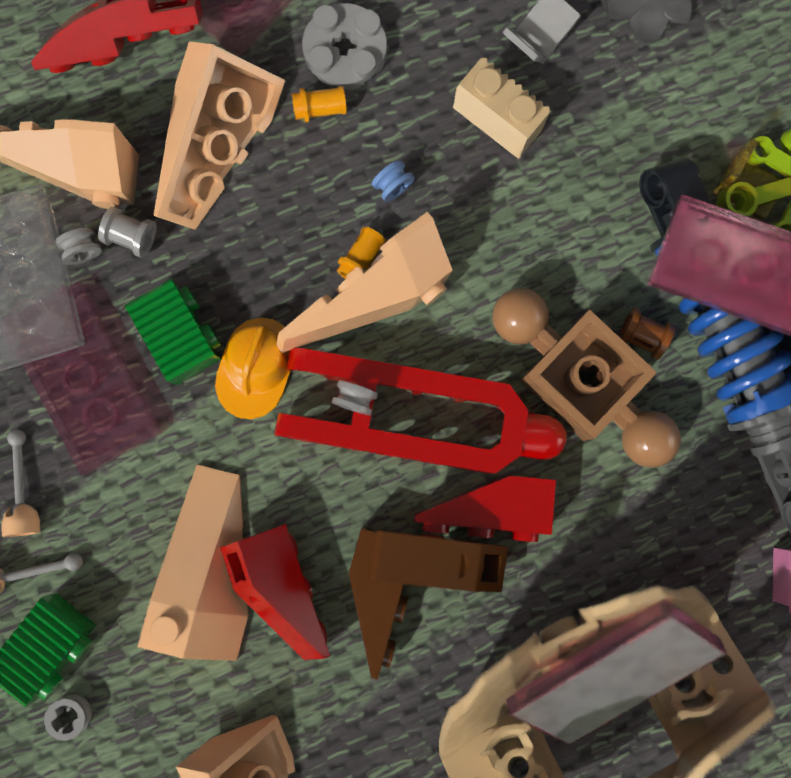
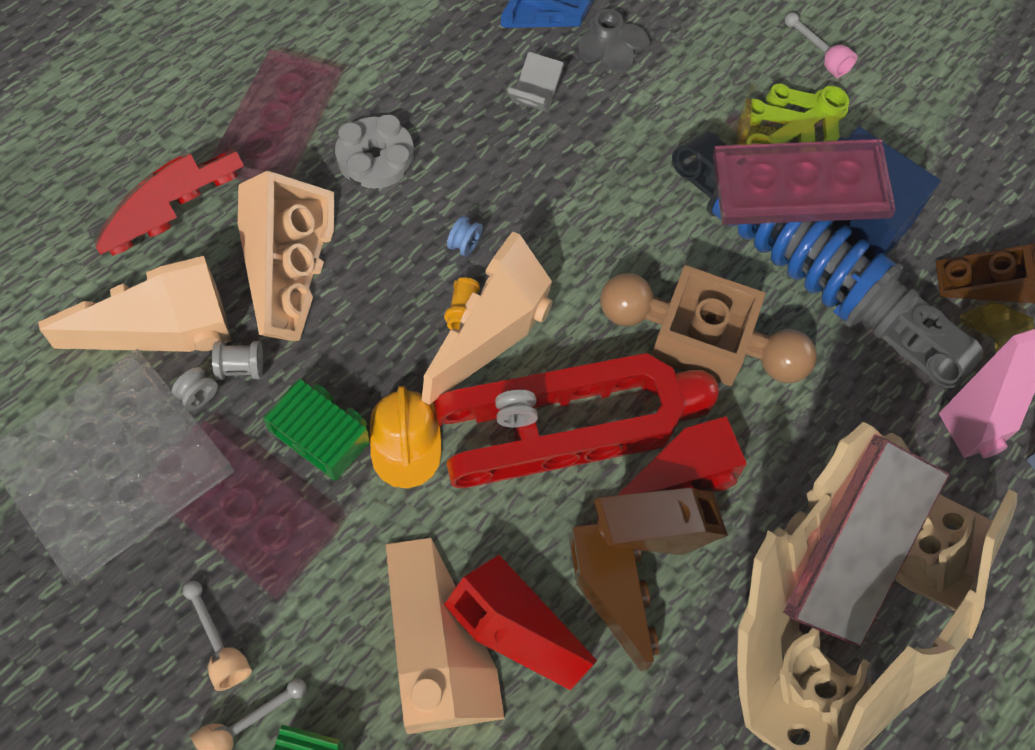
camera: 25 degrees left, 20 degrees down
(318, 103) = (371, 199): light orange pin -> none
(500, 107) = (531, 149): tan brick -> none
(647, 333) = (745, 274): dark orange bush -> none

